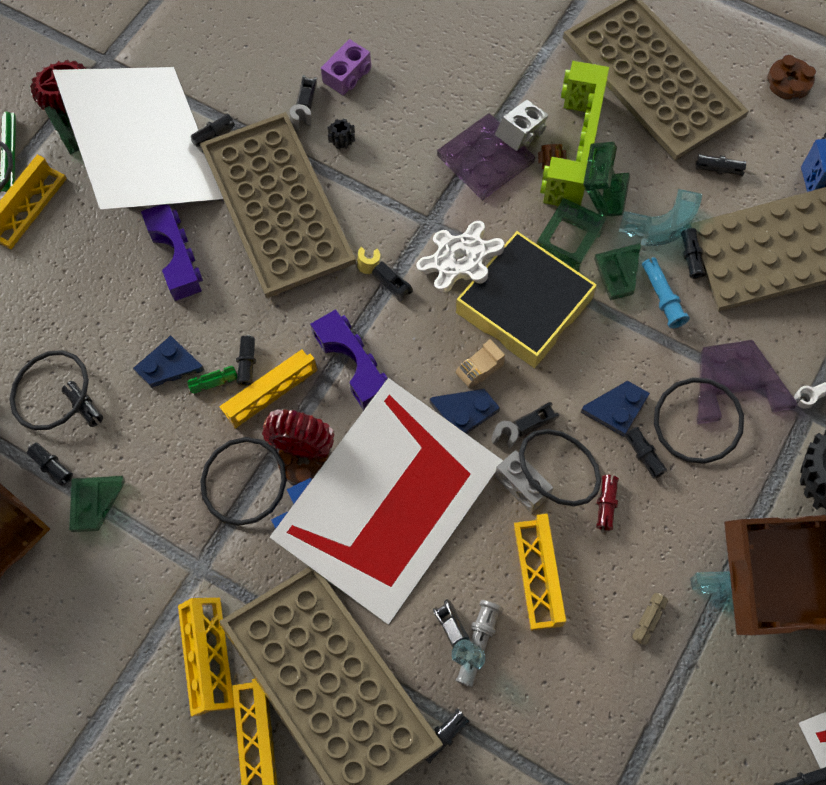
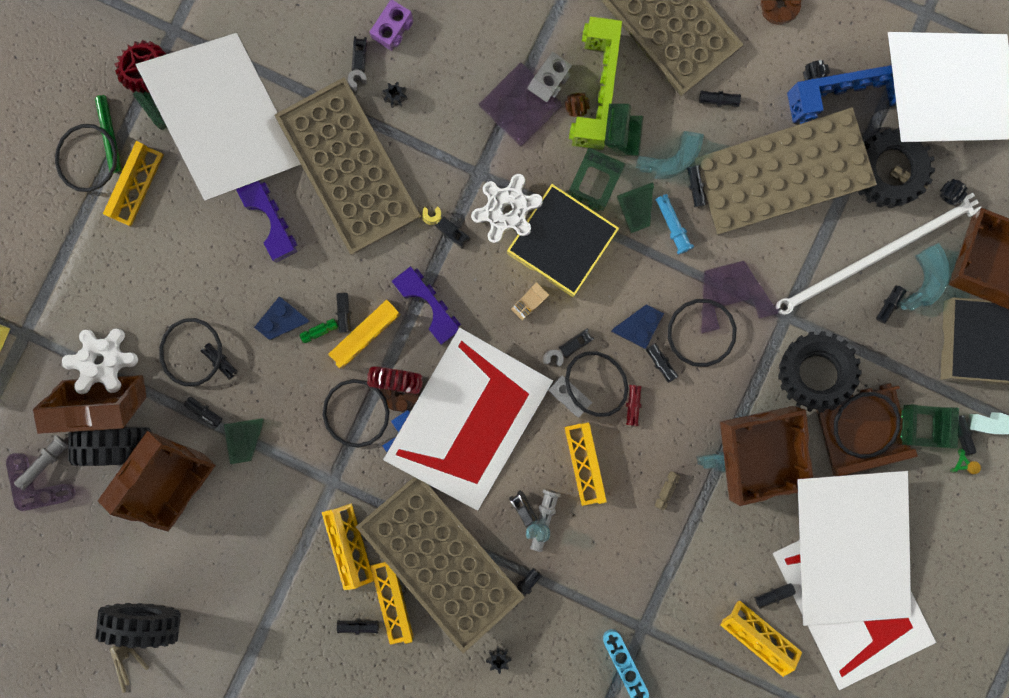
camera: 15 degrees left, 20 degrees up
(201, 771) = (357, 626): none -> black pin
(212, 130) = (282, 99): black axle -> none
(465, 409) = (520, 339): dark blue wing -> none

